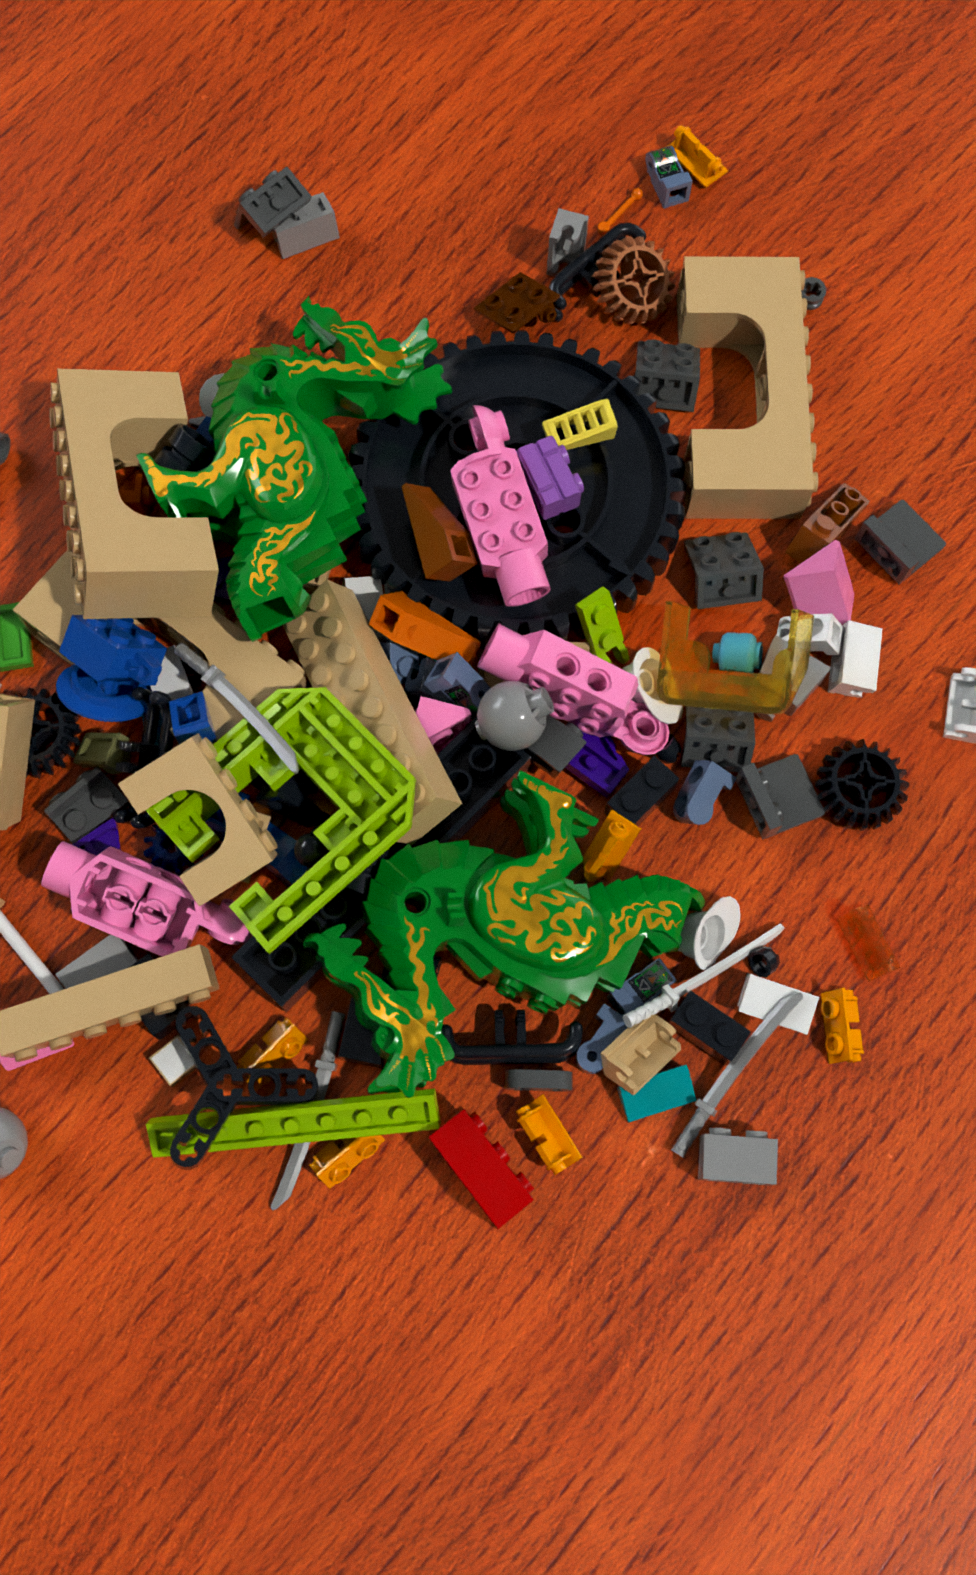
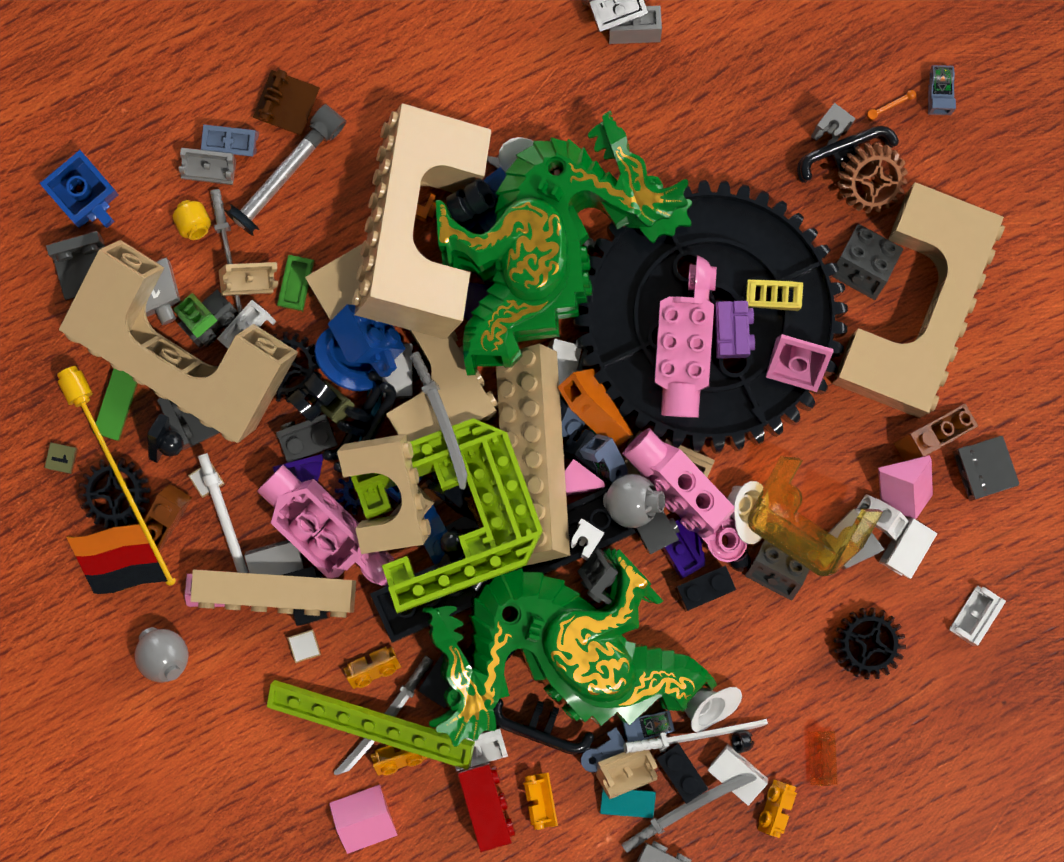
camera: 20 degrees right, 10 degrees up
(78, 737) = (319, 390): none -> black wheel
(190, 717) = (404, 414): blue slope -> none
(214, 1075) = (328, 671): black piece -> none
(330, 1253) = (363, 819): none -> bright pink slope
(440, 537) = (634, 341): dark orange slope -> none
(454, 1093) = (487, 748): none -> white hinge
(475, 774) = (587, 534): none -> white hinge
(505, 818) = (598, 574): none -> dark grey bracket
(519, 303) = (774, 162): reddish brown hinge -> none
(538, 1080) = (549, 761): dark grey beam -> none
(602, 626) = (727, 455): lime hinge -> none
(609, 847) = (665, 618): light orange hinge -> none
(641, 485) = (798, 362): none -> bright pink slope
(696, 157) = (972, 82): light orange hinge -> none
(700, 792) = (748, 603): sand blue leg -> none
(725, 570) = (842, 437): dark grey bracket -> none
(738, 652) = (822, 509): medium azure head -> none
(779, 795) = (806, 627): dark grey bracket -> none
(816, 285) = (1013, 228): dark grey bush -> none

